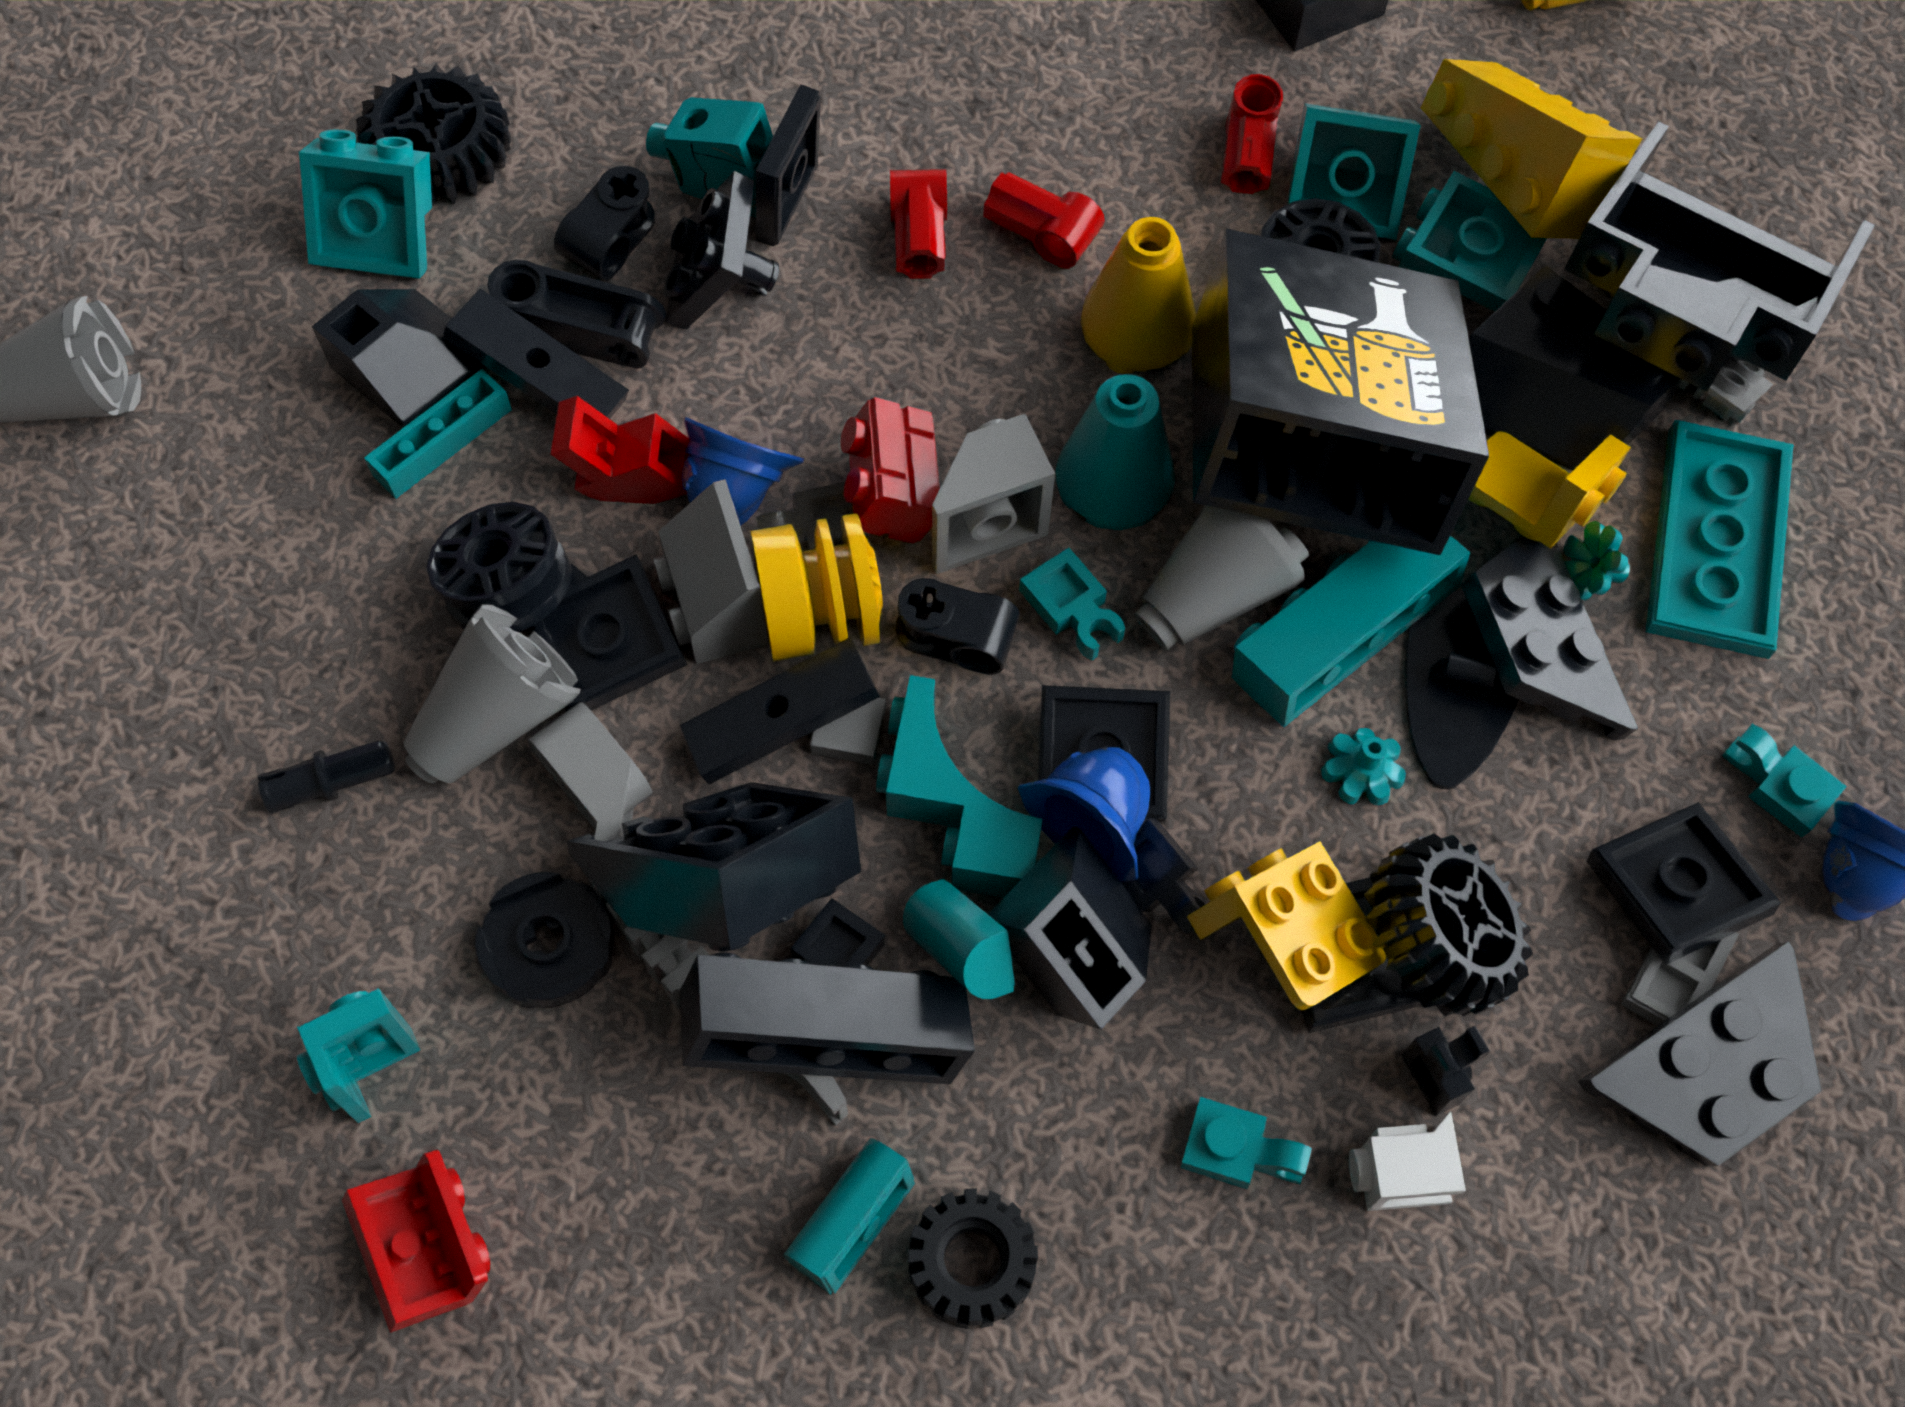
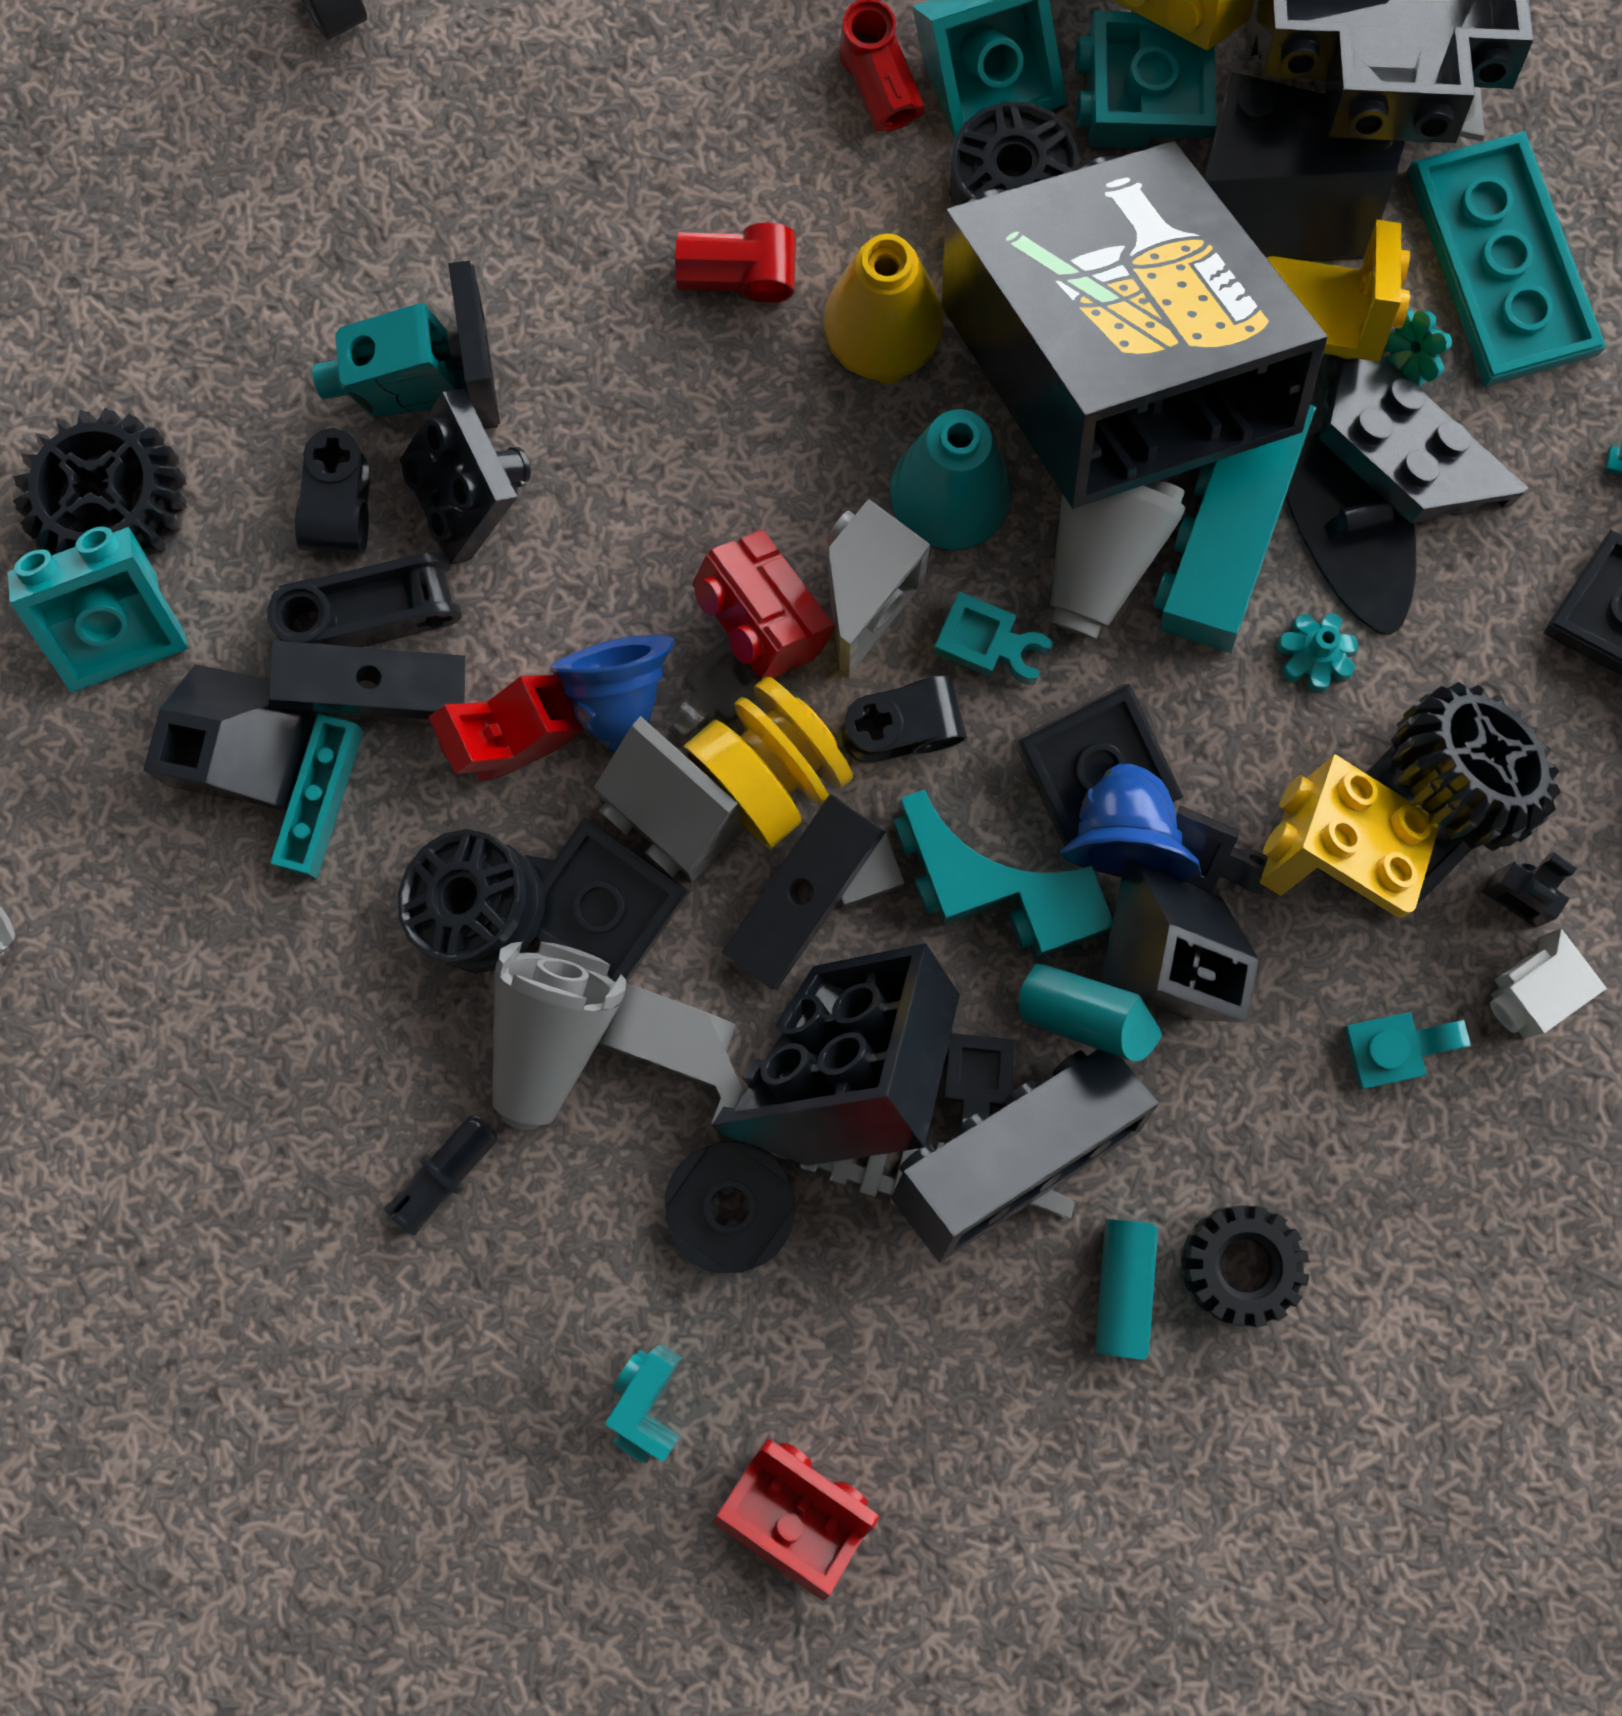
camera: 25 degrees left, 15 degrees up
(919, 215) = (616, 317): red piece -> none

